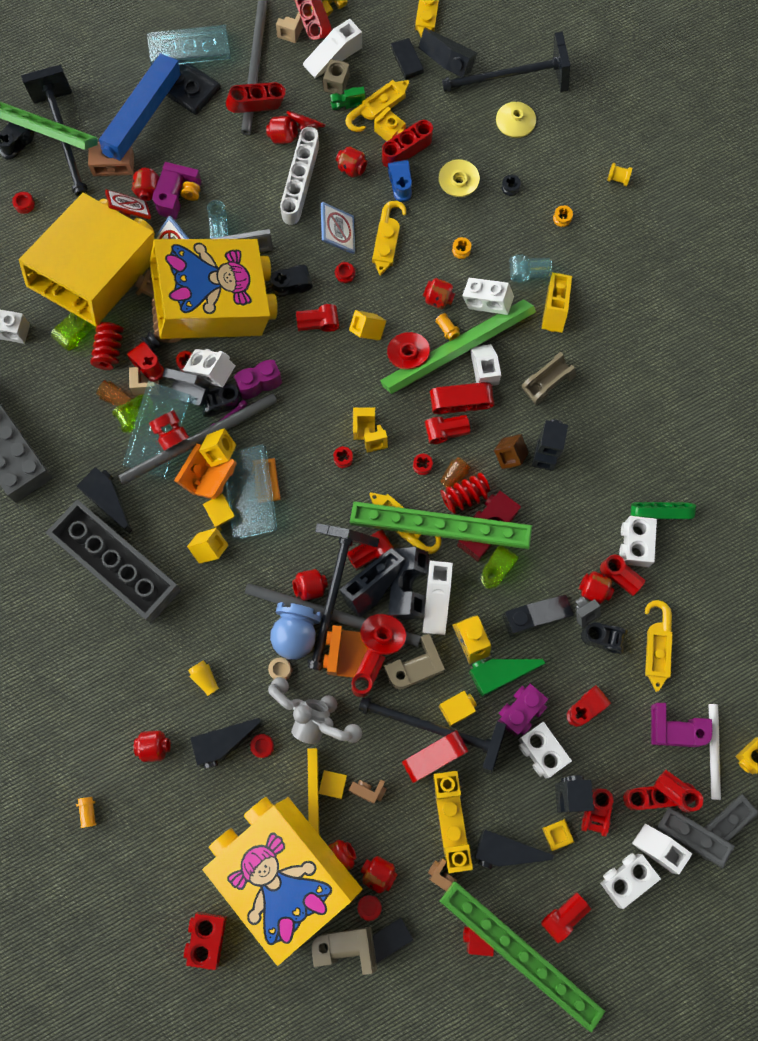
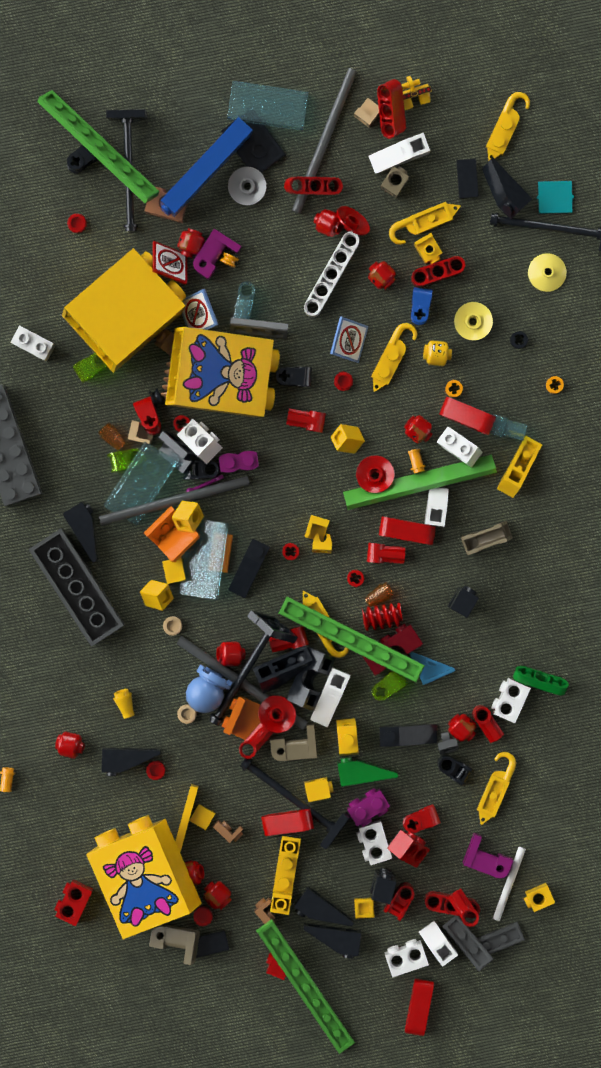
camera: 25 degrees right, 15 degrees up
(105, 345) = (118, 390): red piece -> none
(172, 437) = (150, 490): red wheel -> none
(188, 111) = (240, 178): none -> light grey dish
(235, 575) = (172, 625): none -> tan tile
(302, 485) = (249, 568): none -> black slope
(312, 716) = (201, 762): light grey wheel -> none
(350, 99) = (403, 208): green plate -> none
(432, 216) = (437, 353): none -> yellow head
(485, 265) = (467, 415): none -> beam
(498, 52) = (555, 197): none -> teal piece
(511, 451) = (433, 590): reddish brown panel -> none
(542, 537) = (432, 669): none -> dark azure tile
(548, 883) = (341, 940): none -> black slope
(561, 921) = (344, 971): red piece -> none
(587, 742) = (409, 848): none -> red brick
(667, 938) = (419, 1007): none -> red beam

